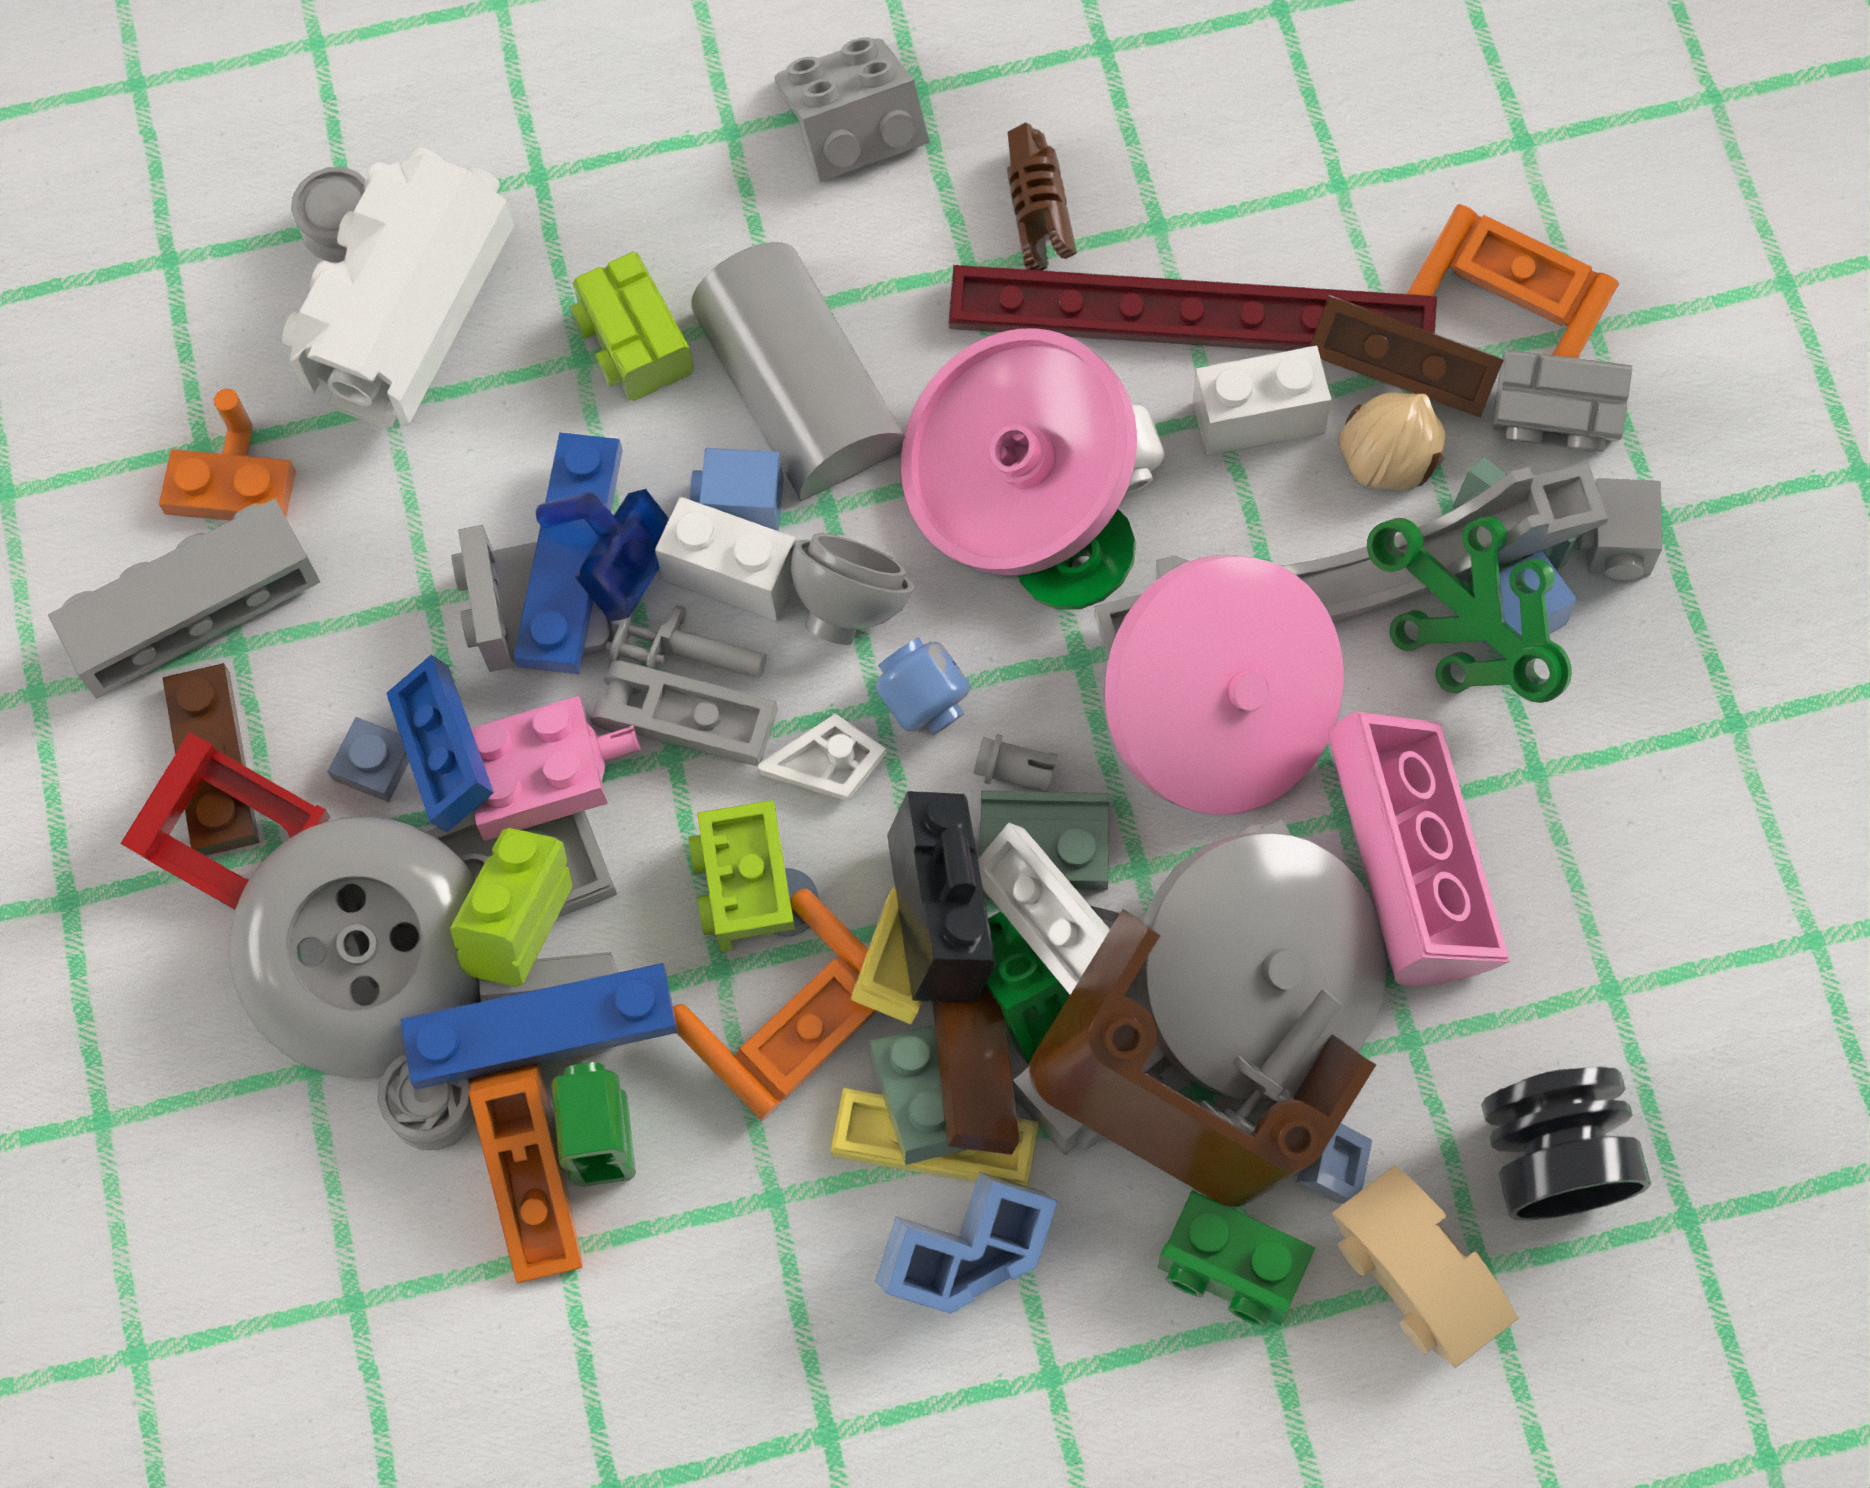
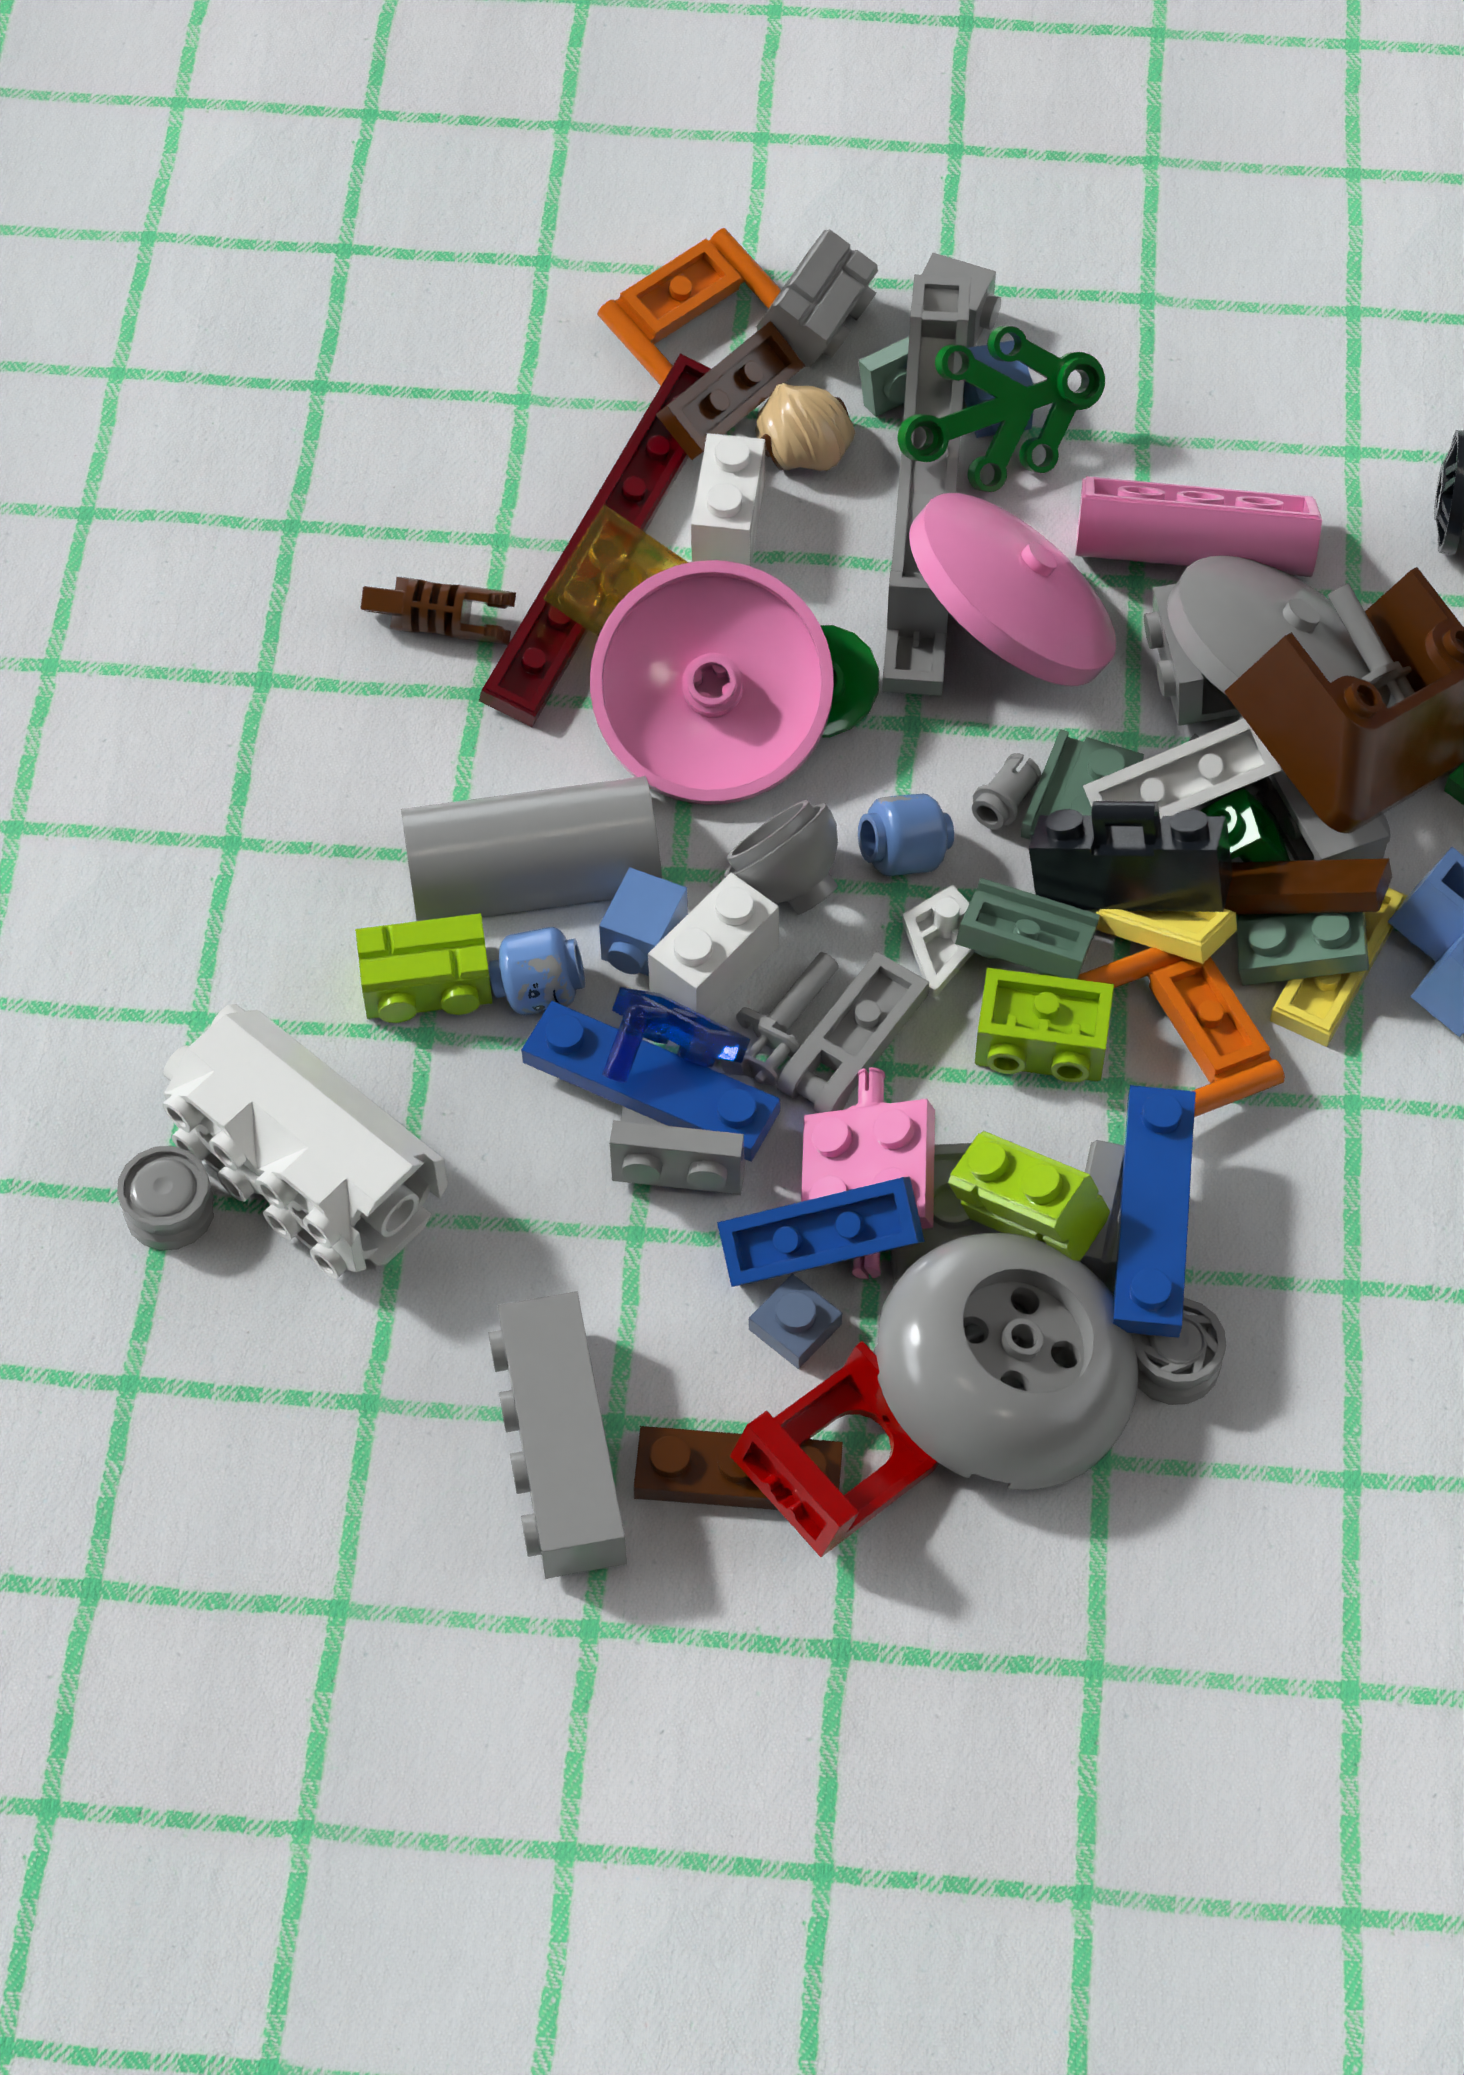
camera: 75 degrees left, 10 degrees down
(225, 482) = (427, 1382): orange plate -> none
(525, 1171) = (1275, 1279): orange slope -> none
(593, 1125) = (1262, 1195): green brick -> none
(656, 420) = (537, 970): none -> medium blue head
(841, 827) = (1027, 930): none -> sand green plate
(853, 106) = (260, 715): light grey bracket -> none
(1131, 327) = (605, 568): none -> clear yellow plate

